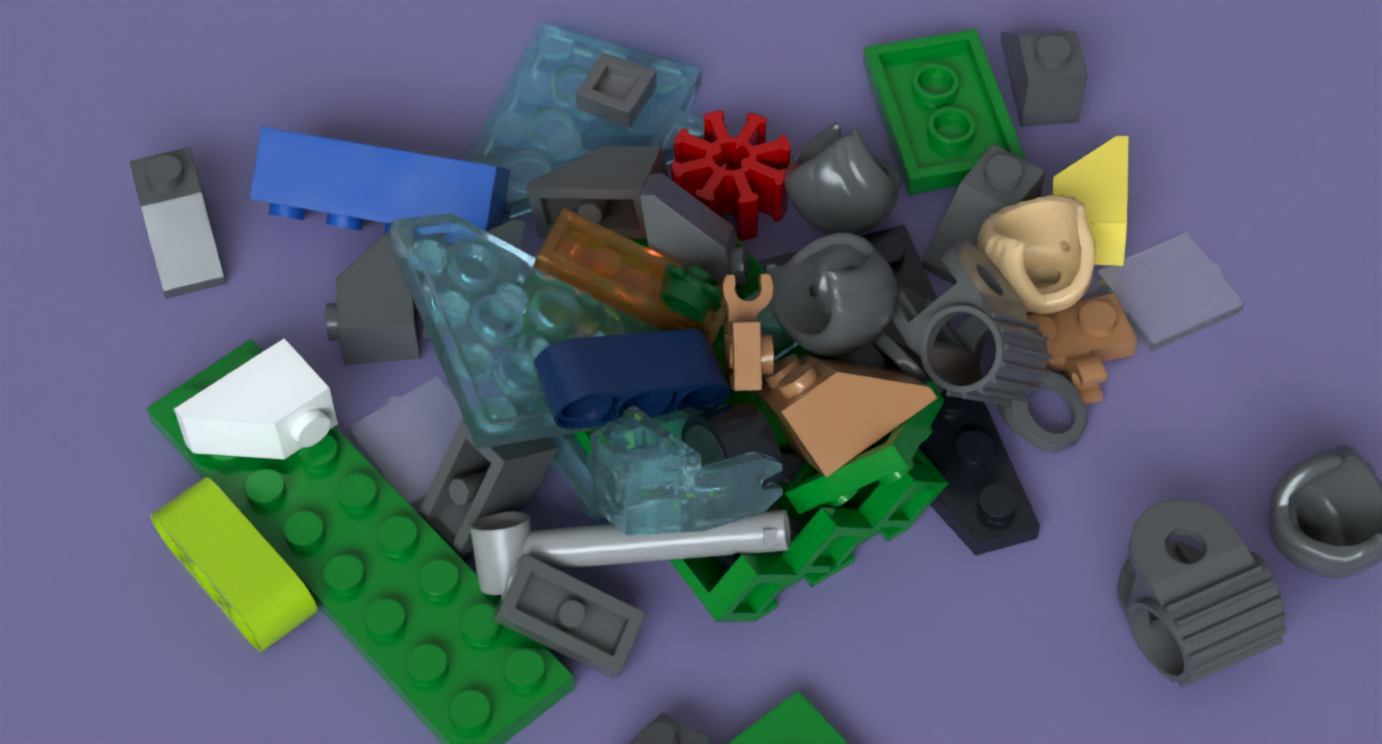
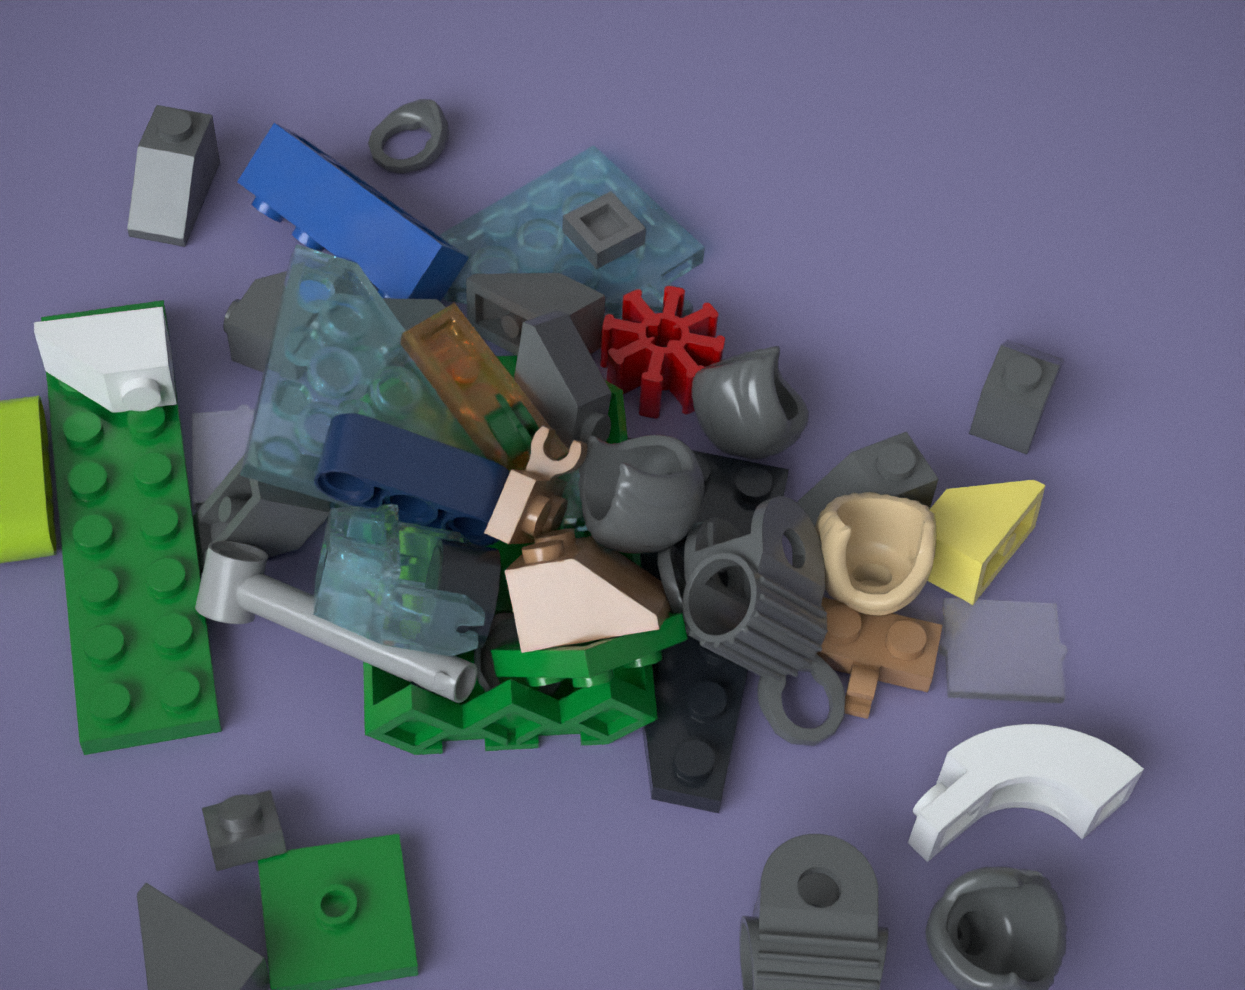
camera: 25 degrees right, 0 degrees up
(373, 62) = (411, 116): none -> dark grey piece
(569, 616) = (245, 664): dark grey plate -> none
(939, 107) = (897, 377): green plate -> none
(1263, 371) = (1028, 768): none -> white arch

